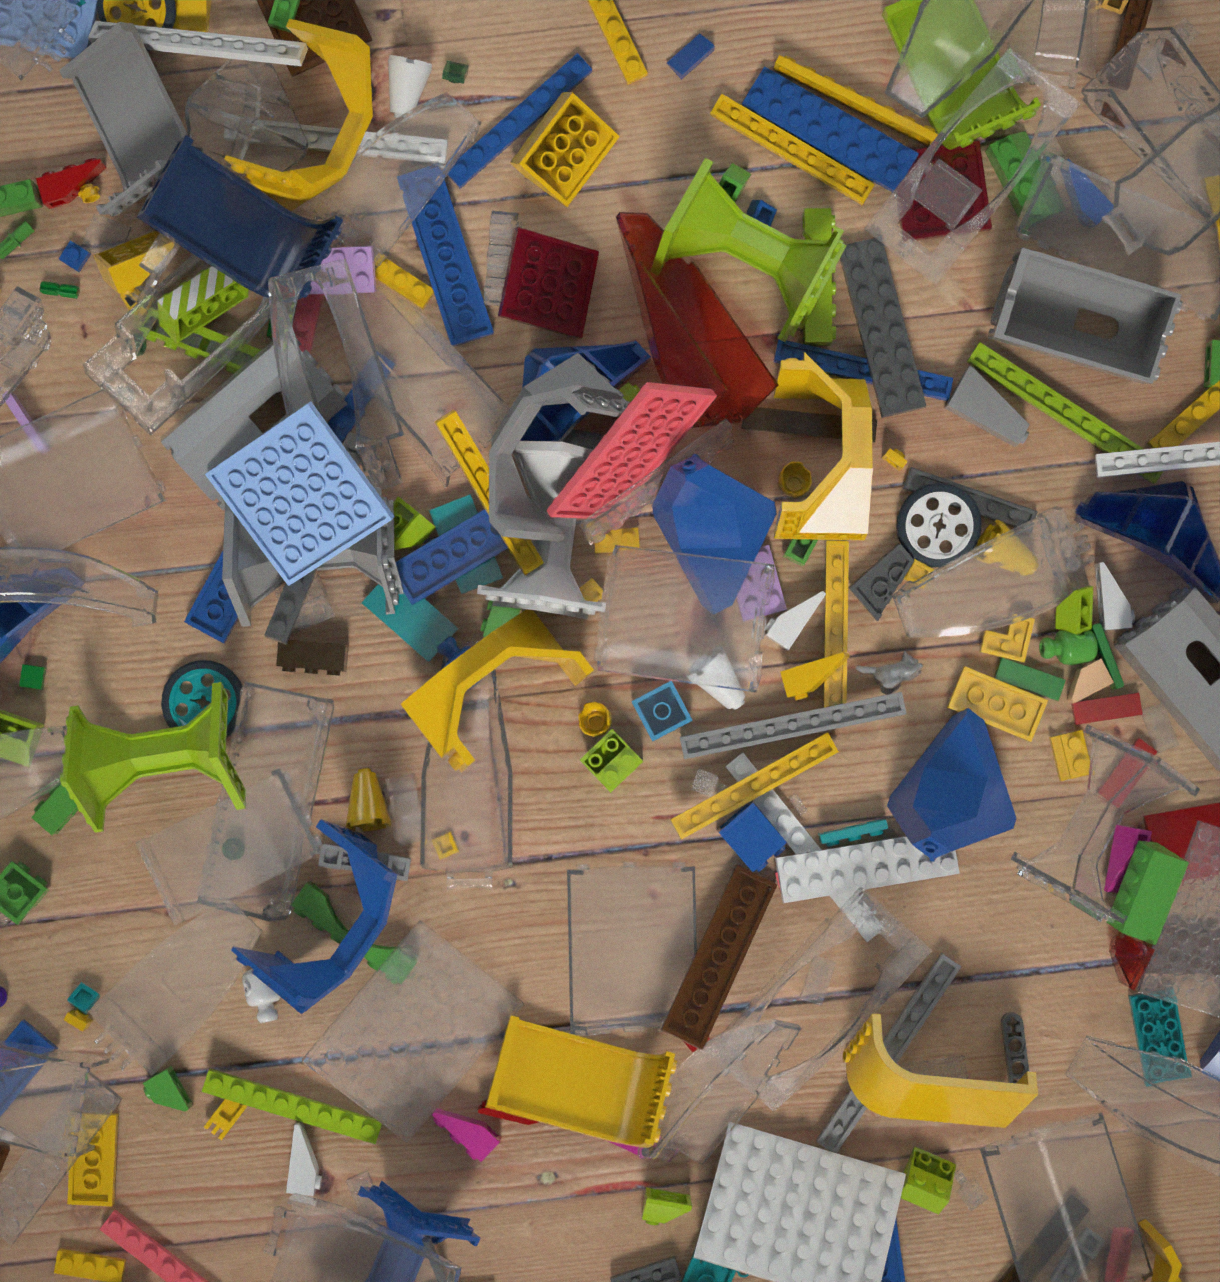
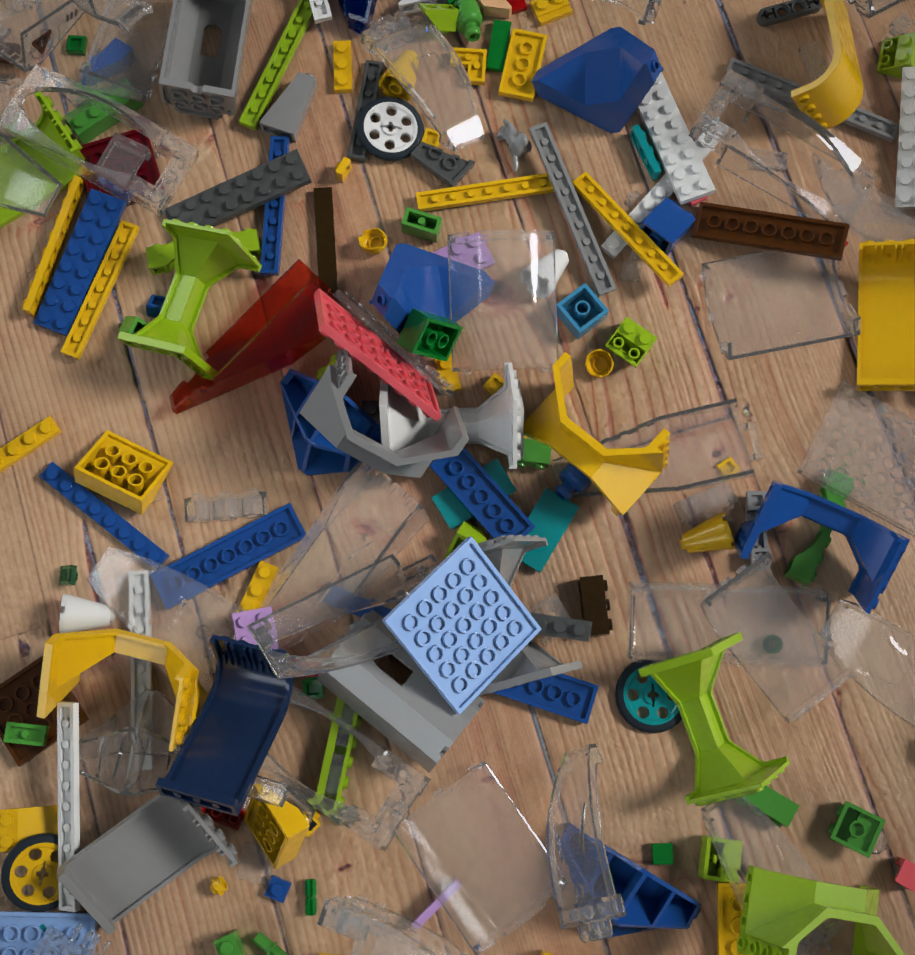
camera: 105 degrees left, 10 degrees down
(63, 186) = (214, 909): red slope -> none
(198, 302) = (304, 759): lime brick -> none
(260, 995) = (892, 596): white piece -> none
(477, 473) = (424, 474): yellow plate -> none
(548, 283) = (241, 462): dark red plate -> none
(653, 521) = (429, 335): none -> green brick
(691, 56) = (31, 383): blue slope -> none
(789, 624) = (483, 219): white slope -> none
(809, 676) = (531, 204): yellow slope -> none
(842, 500) = (388, 183): yellow panel -> none
(1034, 481) = (342, 66): none -> yellow plate
(1119, 158) = (76, 45): none -> green tile

